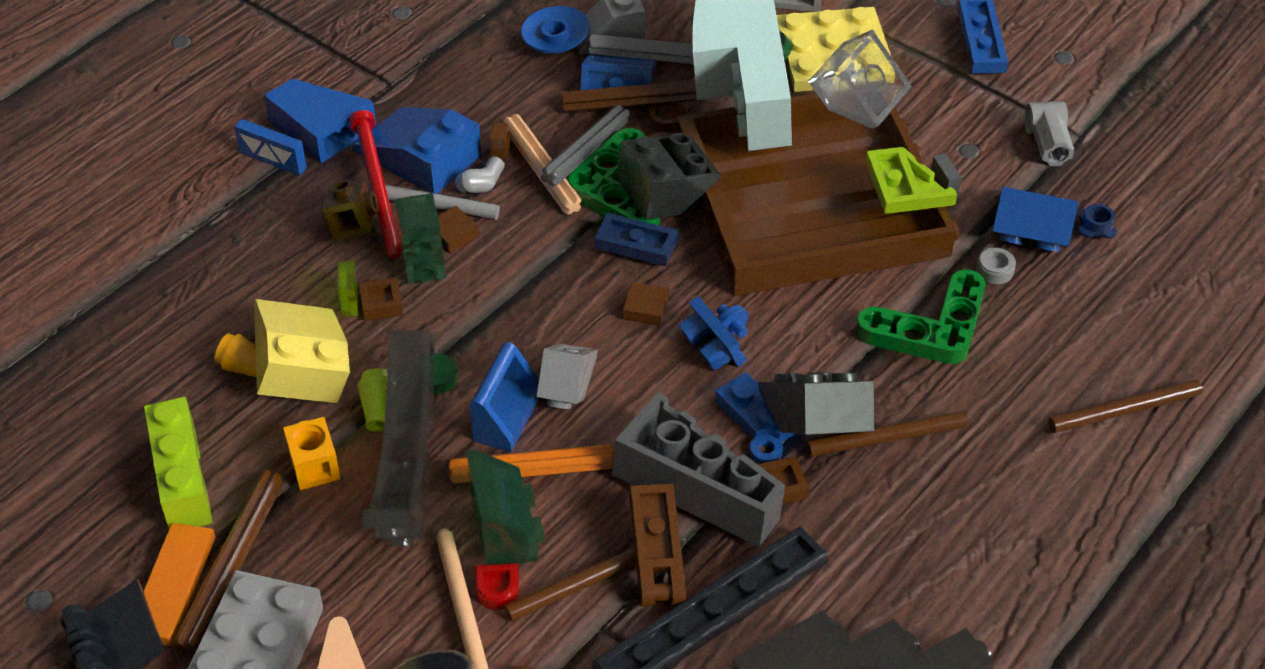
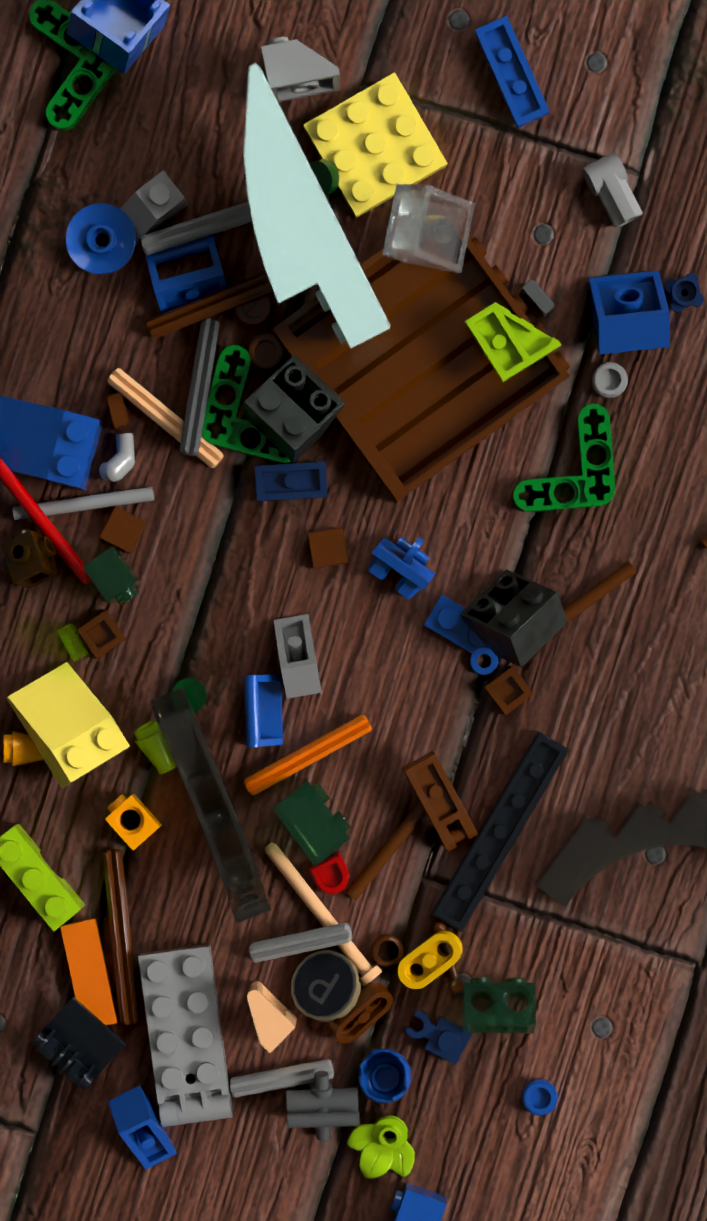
camera: 25 degrees left, 40 degrees up
(425, 629) = (300, 942): none -> light grey axle
(706, 476) = (439, 720): dark grey wedge -> none

